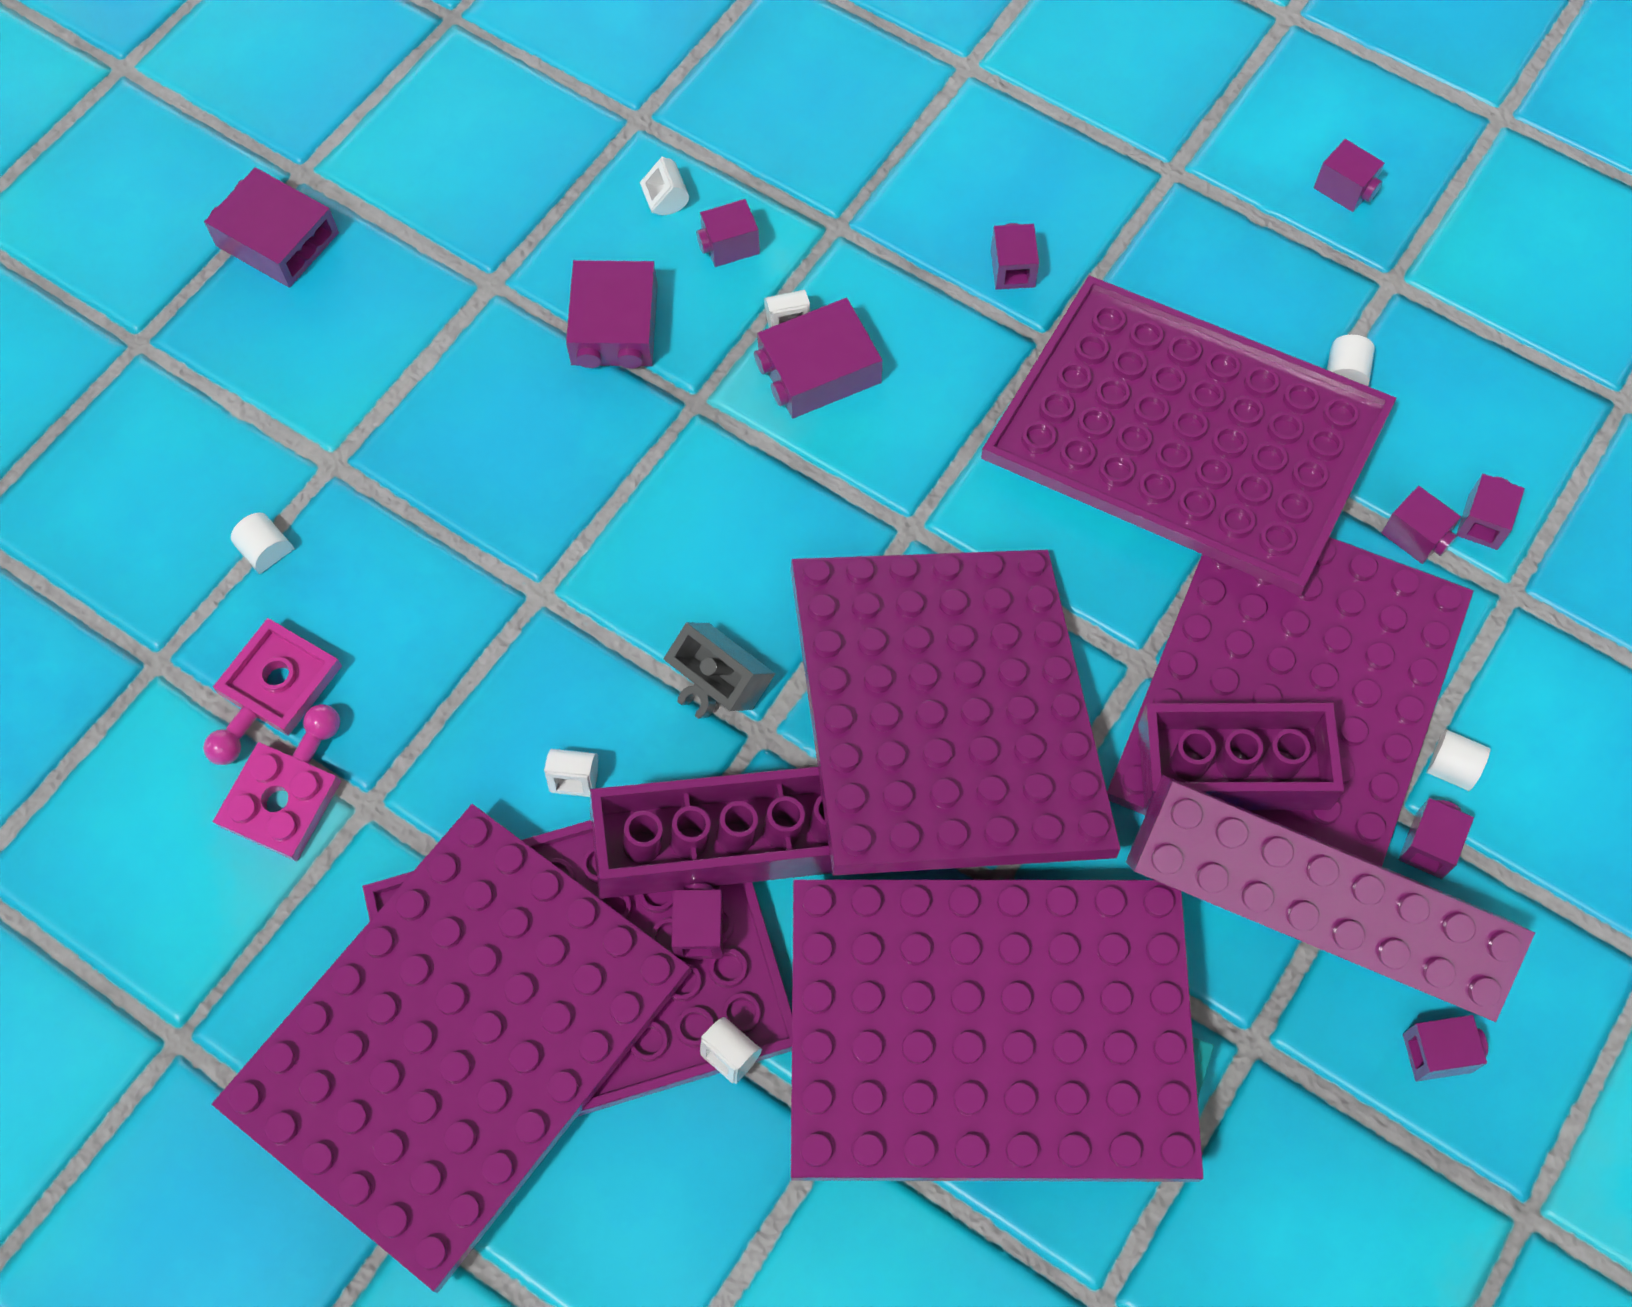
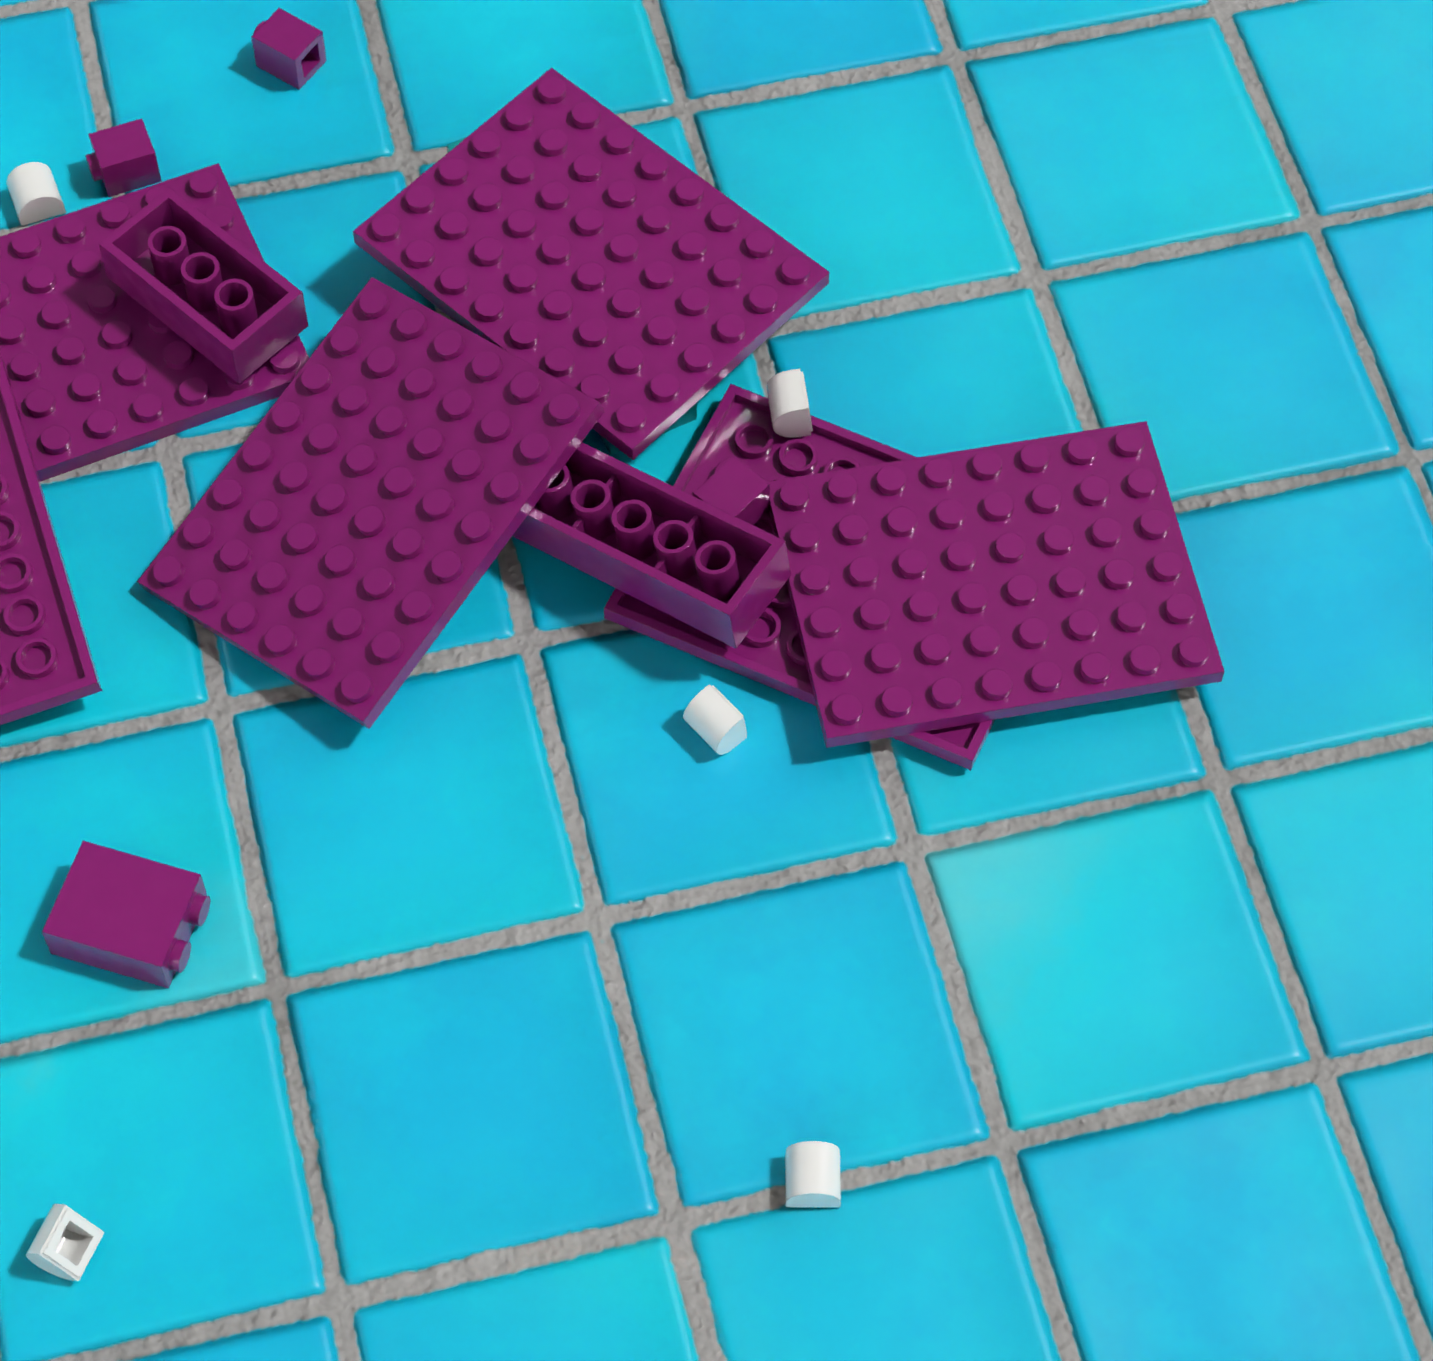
camera: 140 degrees left, 5 degrees down
(271, 771) = (971, 933): dark pink plate -> none
(276, 705) = (923, 989): dark pink plate -> none
(612, 313) = (264, 1131): magenta brick -> none
(717, 669) = (517, 693): dark grey brick -> none
(728, 233) = (61, 1125): magenta brick -> none
(786, 307) = (100, 989): white brick -> none
(1329, 898) = (265, 155): magenta brick -> none

